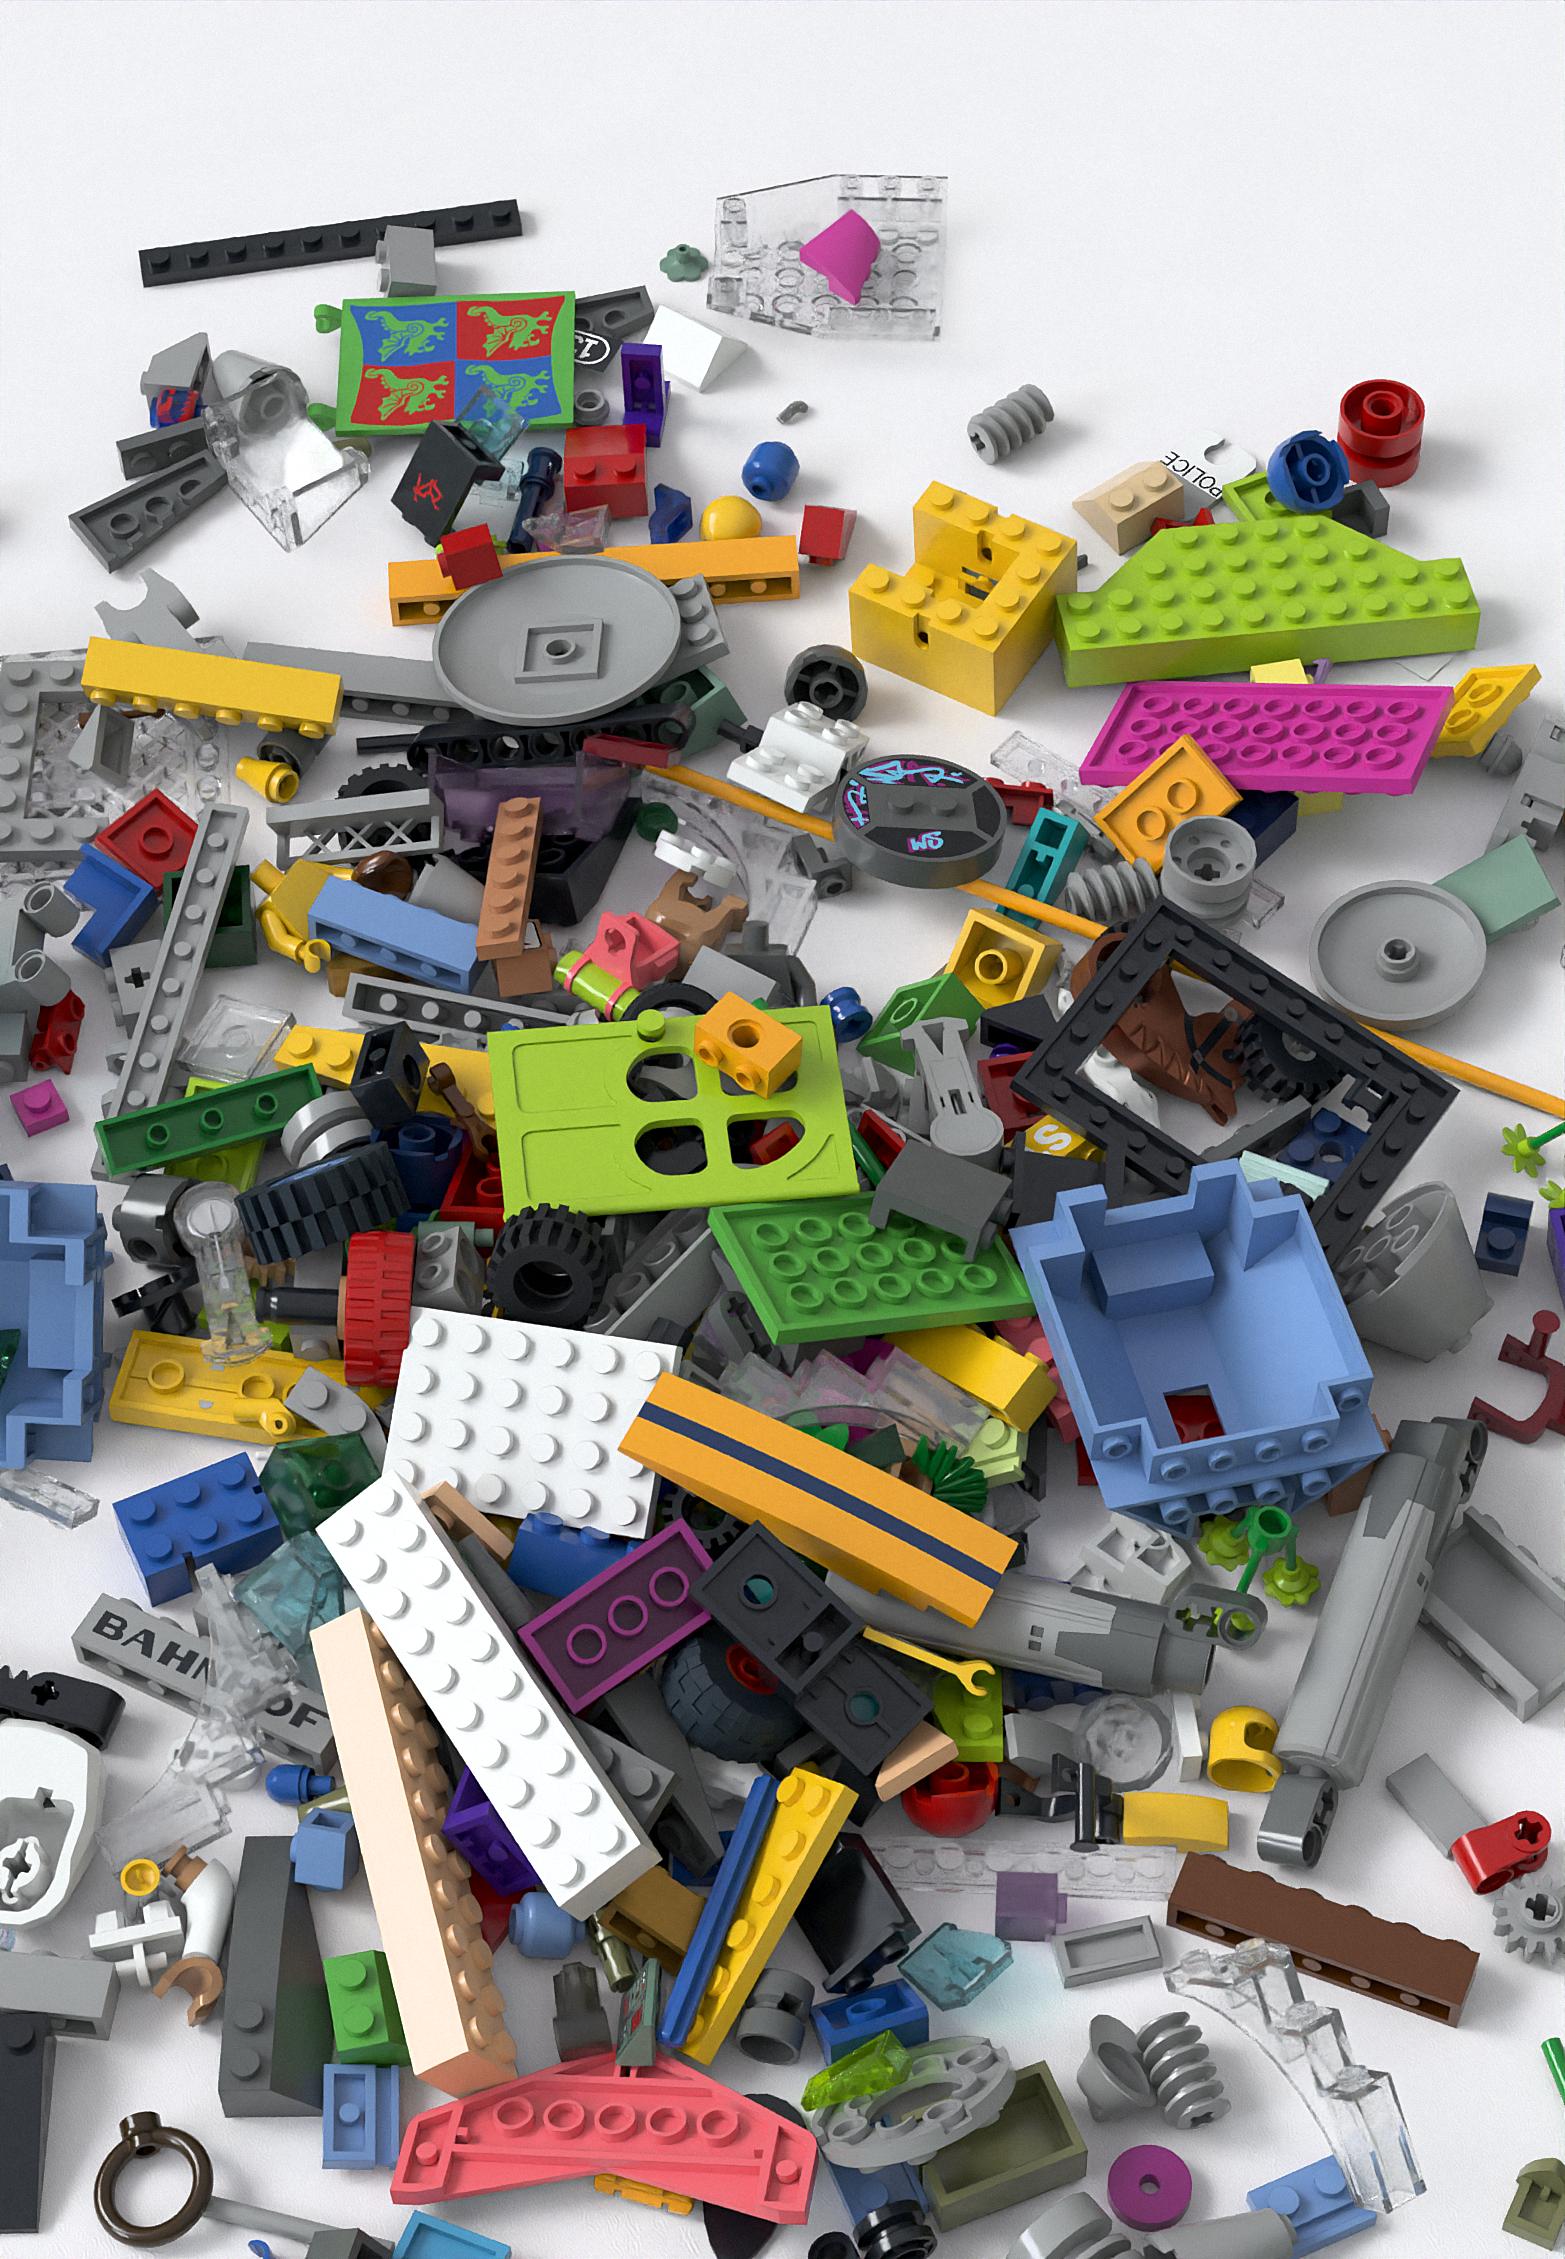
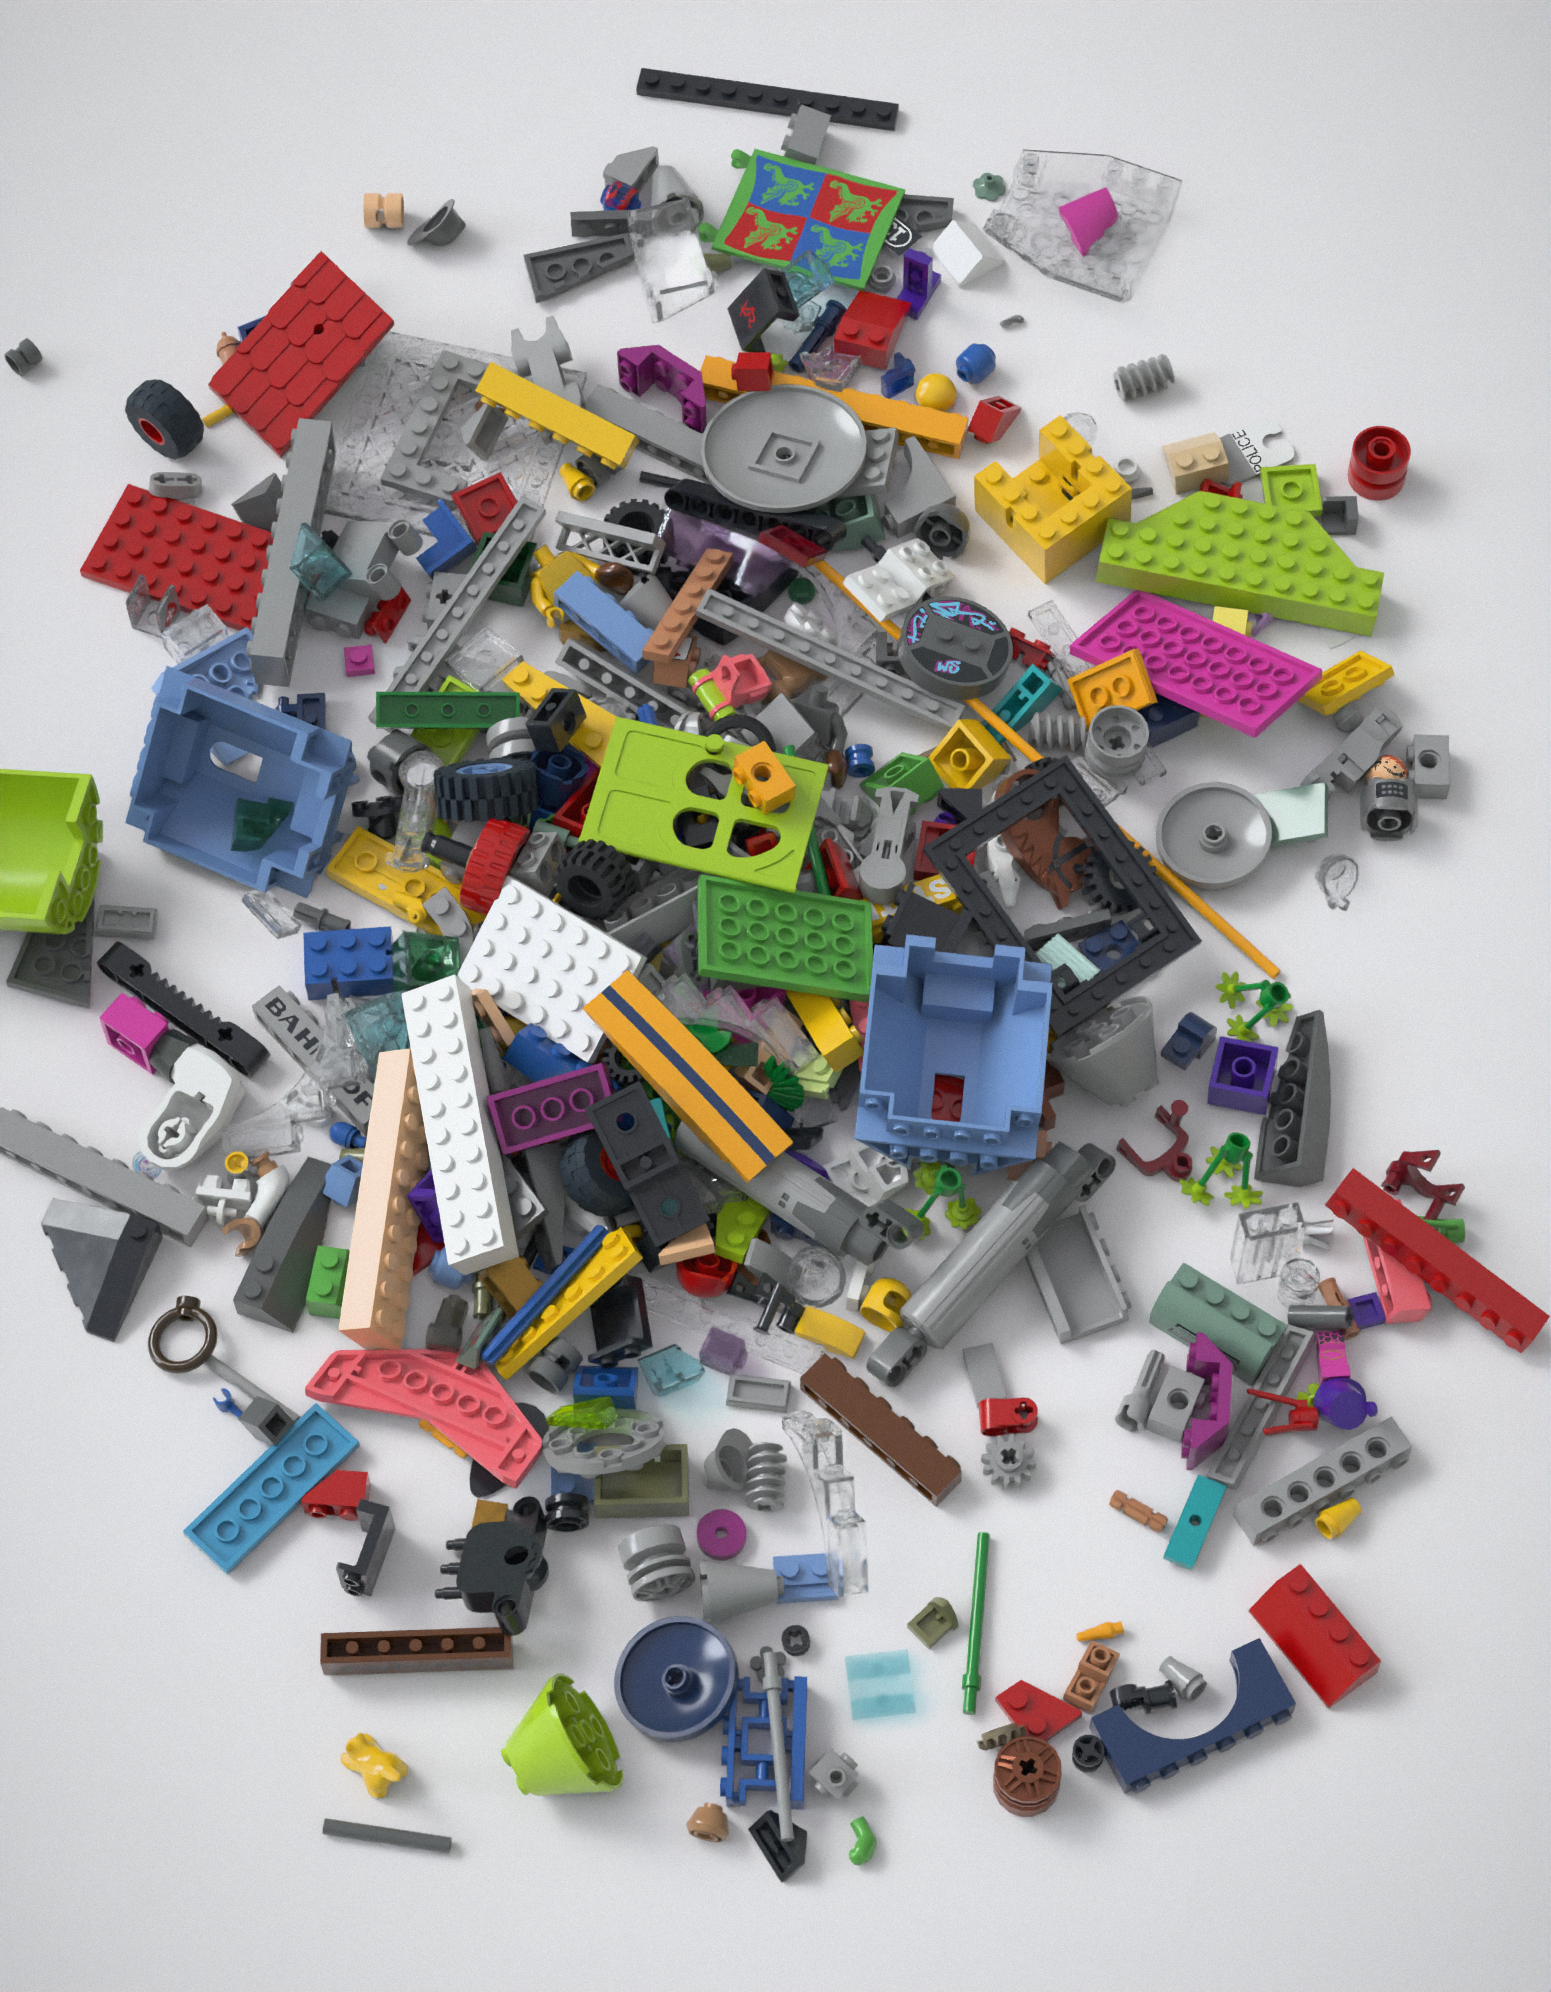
camera: 20 degrees right, 10 degrees up
(122, 1481) = (320, 918): none -> dark grey axle
(345, 601) = (655, 365): none -> magenta slope
(360, 2117) = (307, 1339): medium blue plate -> none
(444, 1083) = (588, 735): reddish brown piece -> none
(747, 888) = (828, 660): none -> light grey plate
(771, 645) = (923, 489): none -> light grey arch
(945, 1195) = (844, 911): dark grey panel -> none
(963, 1670) = (719, 1190): yellow flag -> none
(1308, 473) = (1312, 481): blue cylinder -> none

